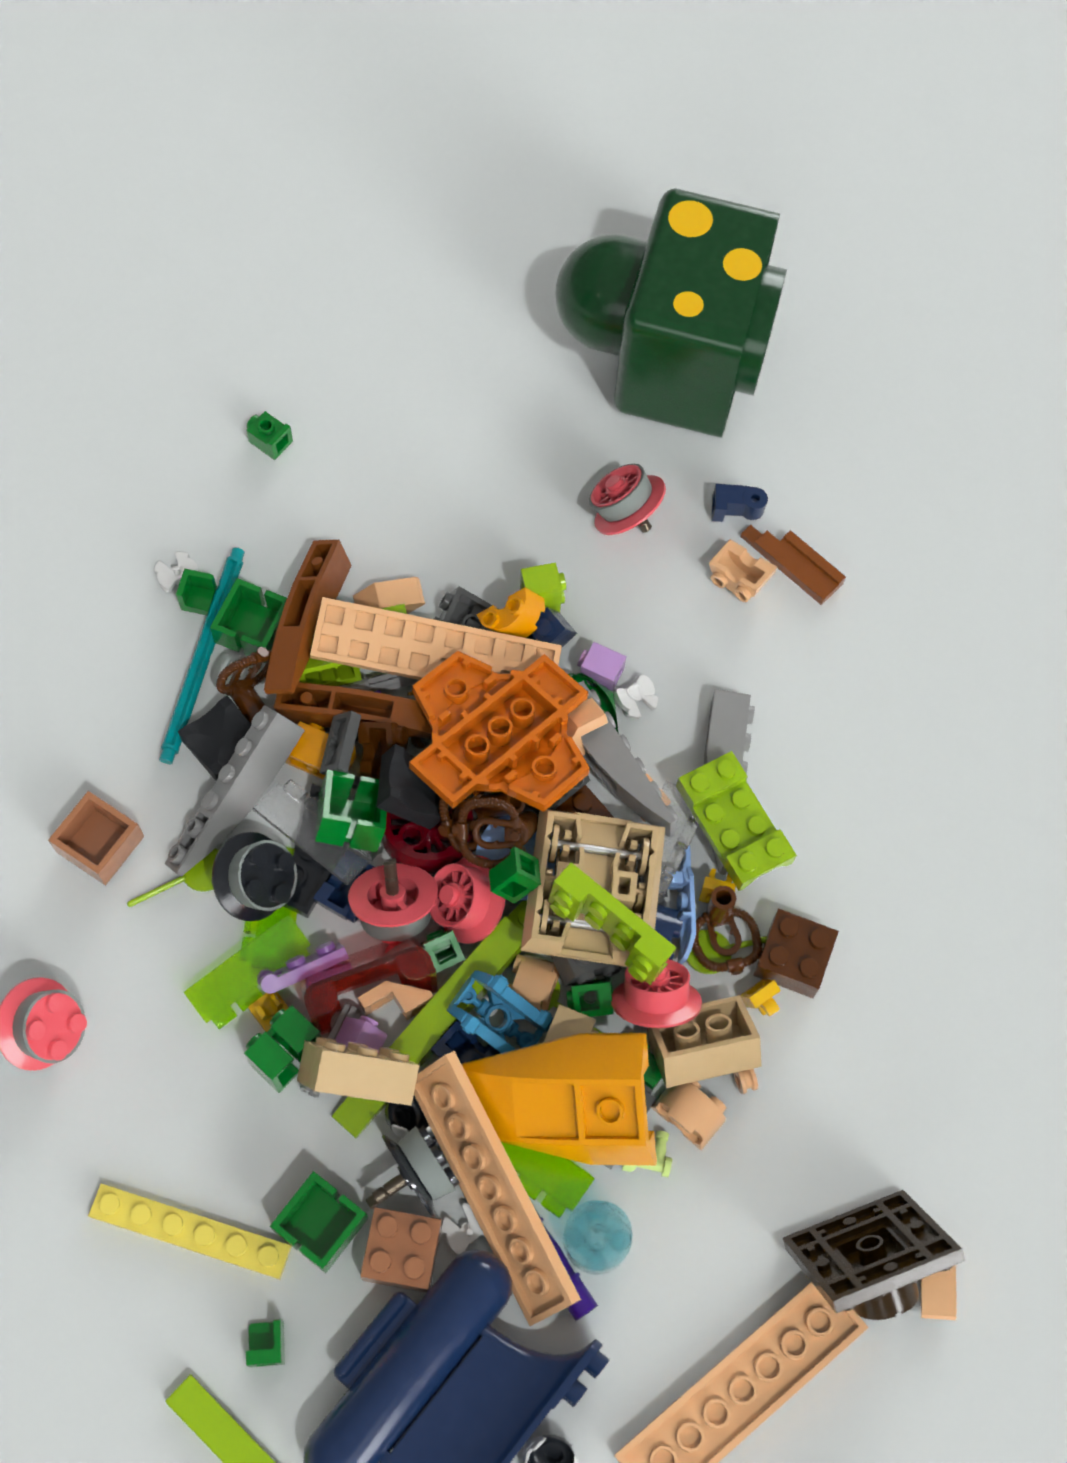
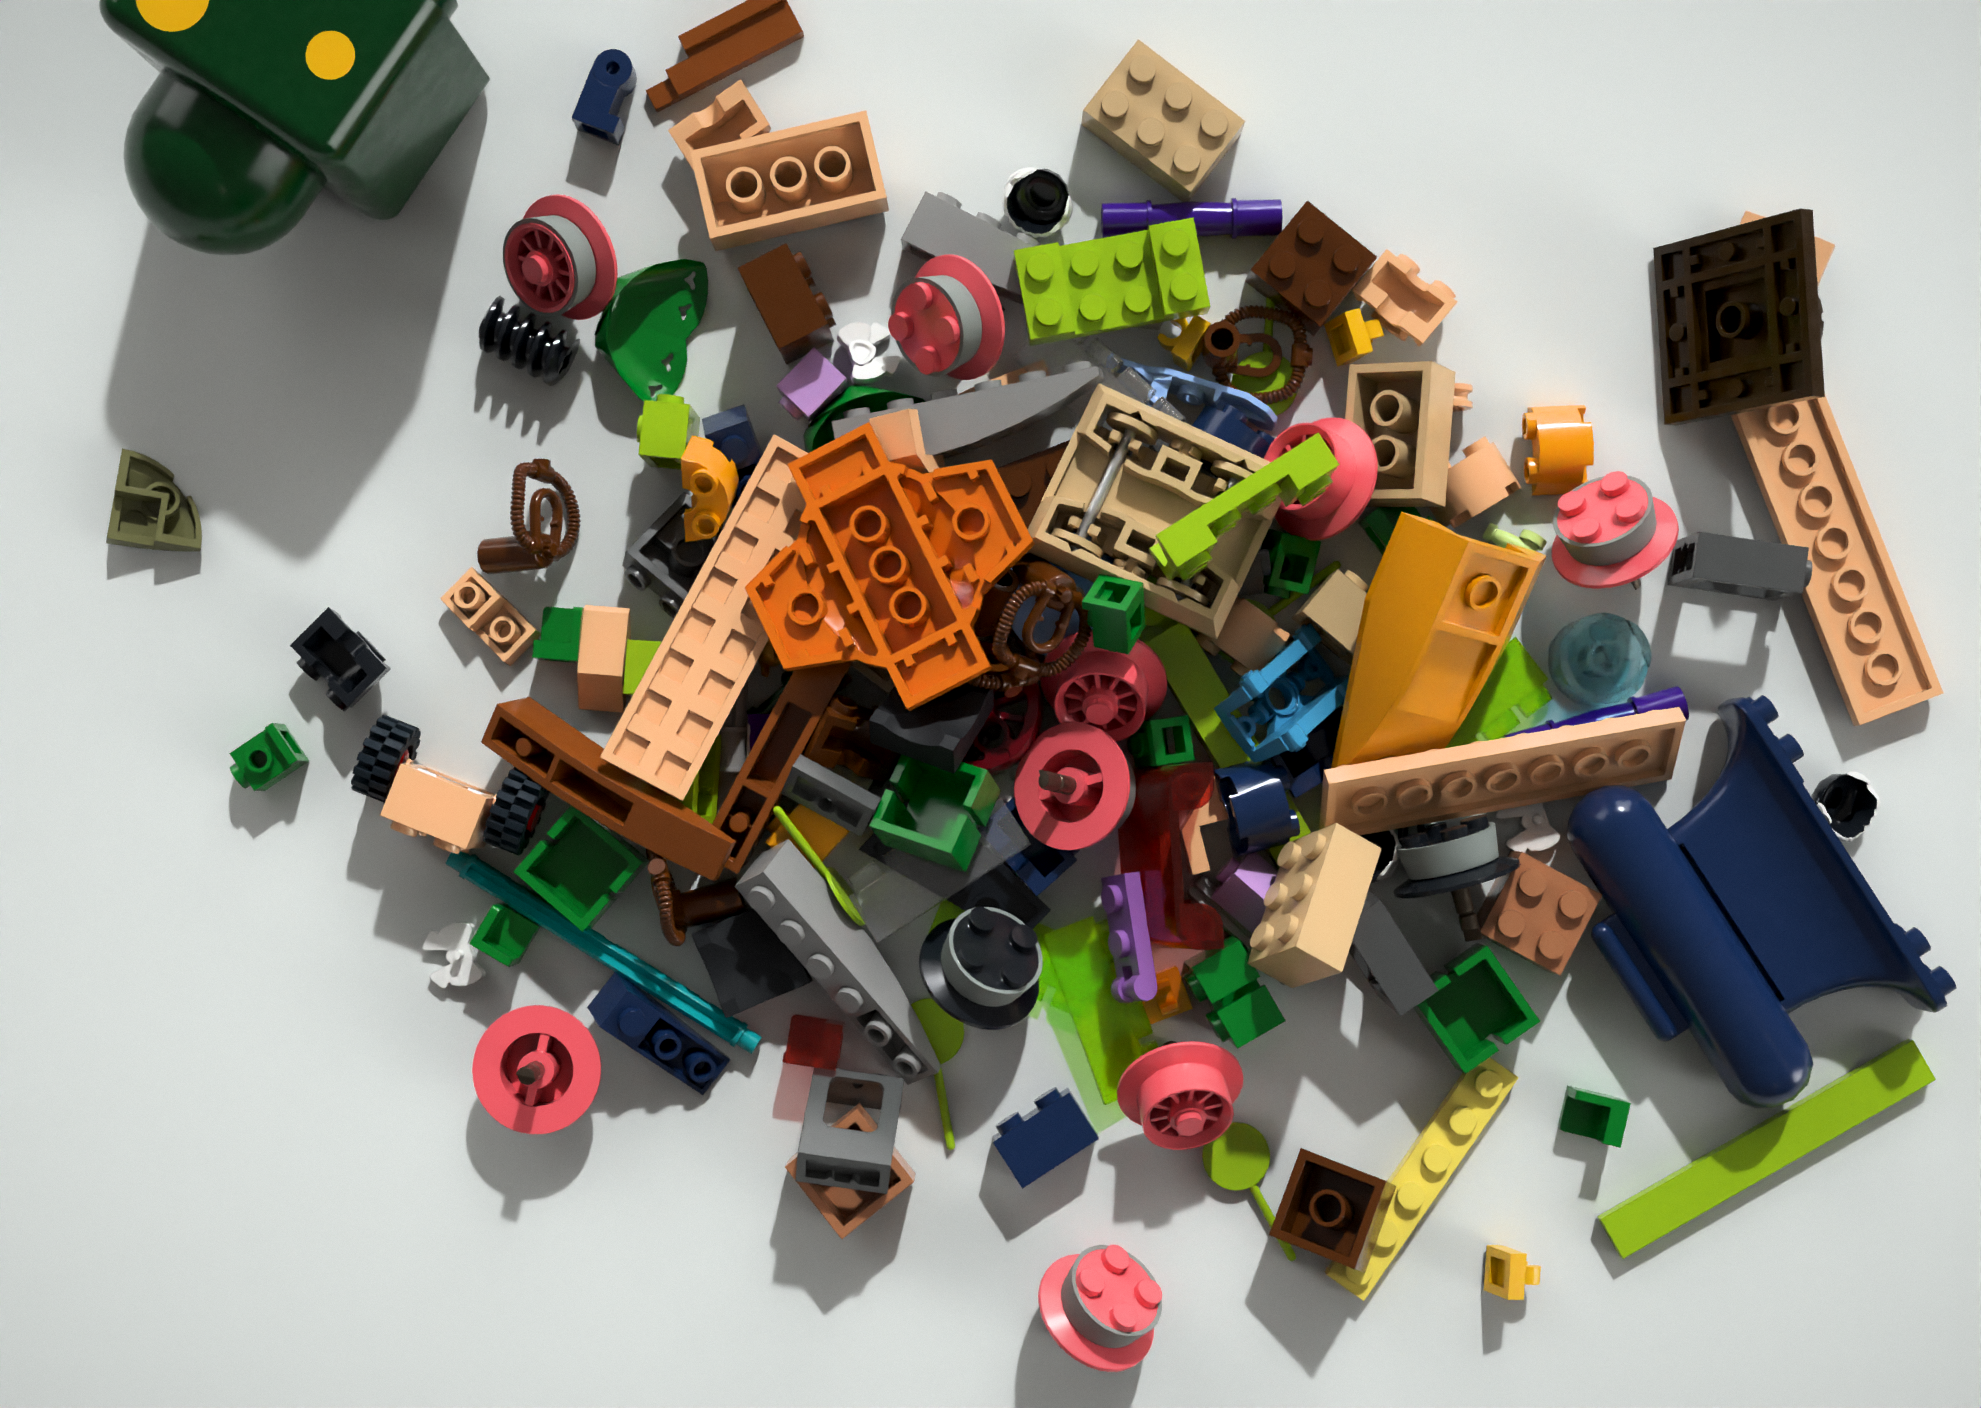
camera: 70 degrees left, 20 degrees up
(104, 824) = (844, 1155): none -> dark grey window
(115, 630) = (536, 1069): none -> coral piece
(134, 1316) = (1508, 1272): none -> yellow tile
(146, 1166) = (1332, 1210): none -> reddish brown brick
(151, 958) = (1044, 1136): none -> dark blue brick
(156, 699) = (656, 1033): none -> dark blue slope
(168, 1098) = (1238, 1163): none -> lime piece
(177, 797) = (814, 1042): none -> clear red panel
(204, 1034) = (1181, 1093): none -> coral piece
(268, 529) = (440, 805): none -> brick
(288, 770) = (835, 880): none -> lime piece
(341, 454) = (340, 657): none -> black cylinder
(342, 1138) = (1389, 959): none -> dark grey window
(395, 531) = (490, 616): none -> light nougat slope
(395, 570) = (559, 635): none -> green panel
(400, 335) = (151, 508): none -> olive brick
(415, 1021) = (1256, 806): none -> dark blue cylinder
(443, 536) = (532, 548): none -> reddish brown piece
(570, 500) = (526, 344): none -> black piece
(607, 567) = (646, 325): none -> green piece
(649, 634) = (784, 299): none -> reddish brown brick
(673, 730) = (949, 319): none -> coral piece
(689, 1211) = (1611, 532): none -> coral piece
(698, 1318) = (1740, 566): none -> dark grey window
(725, 616) = (789, 181): none -> light nougat slope
(735, 1164) = (1560, 448): none -> light orange cylinder
(771, 767) = (1037, 202): none -> black hair
(799, 1020) = (1402, 299): none -> light nougat cylinder
(801, 873) = (1210, 218): none -> dark purple piece
(854, 829) = (1162, 121): none -> tan brick

